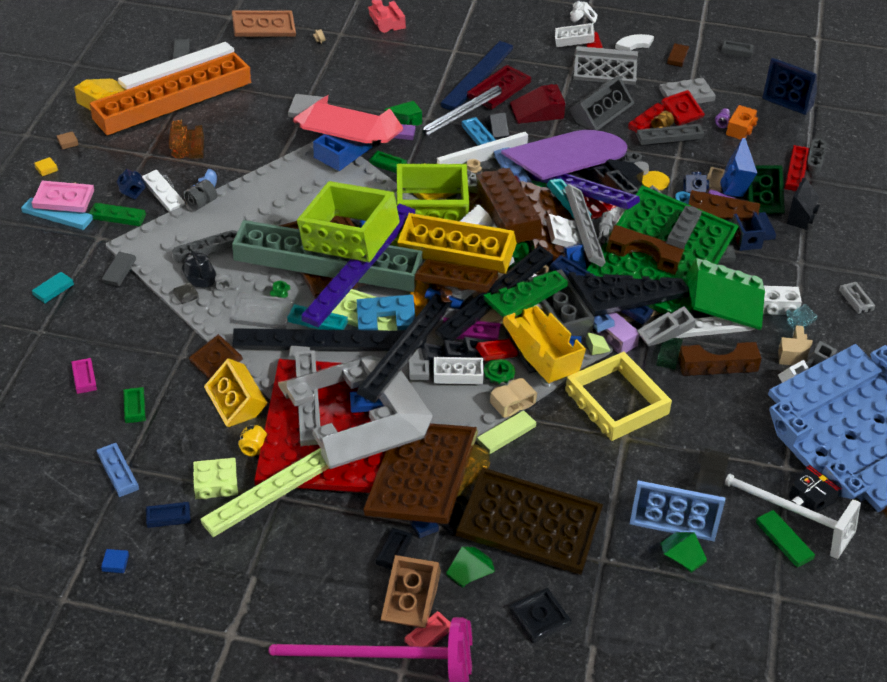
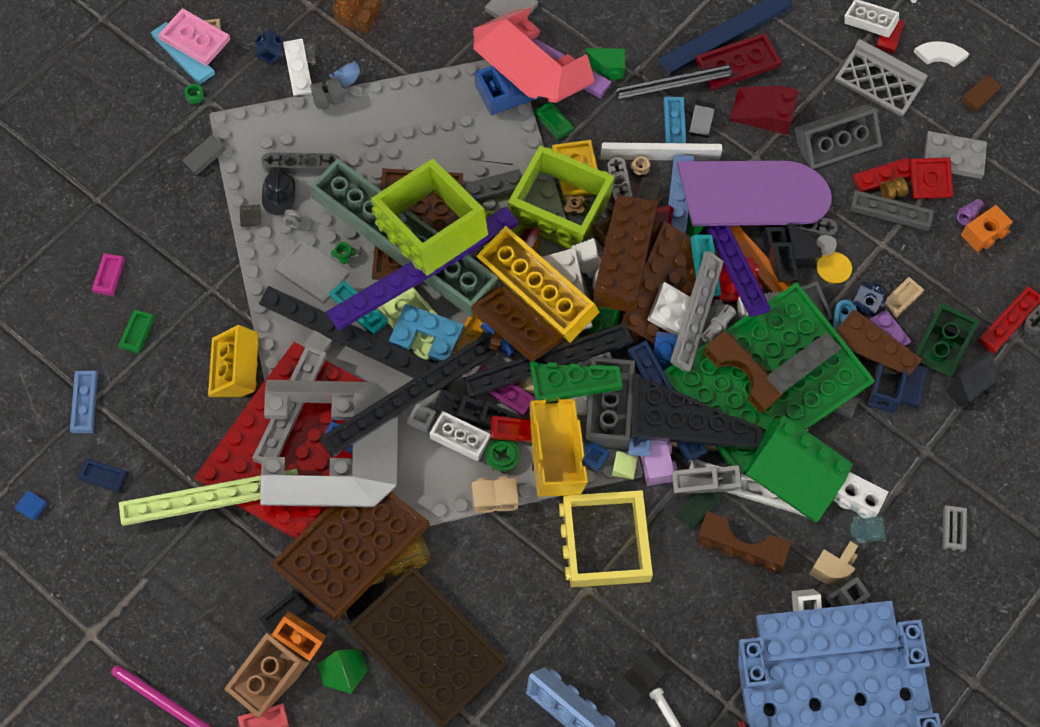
camera: 25 degrees right, 20 degrees up
(52, 287) = (132, 150): teal tile -> none
(84, 234) = (194, 93): none -> green tile
(117, 214) = (240, 78): green plate -> none
(213, 355) = (238, 308): reddish brown tile -> none
(215, 478) = (164, 454): yellowish green plate -> none
(252, 440) = (218, 427): yellow head -> none
(422, 549) = (298, 635): none -> orange brick
(506, 432) = (469, 529): yellowish green tile -> none
(739, 171) = (927, 304): blue slope -> none

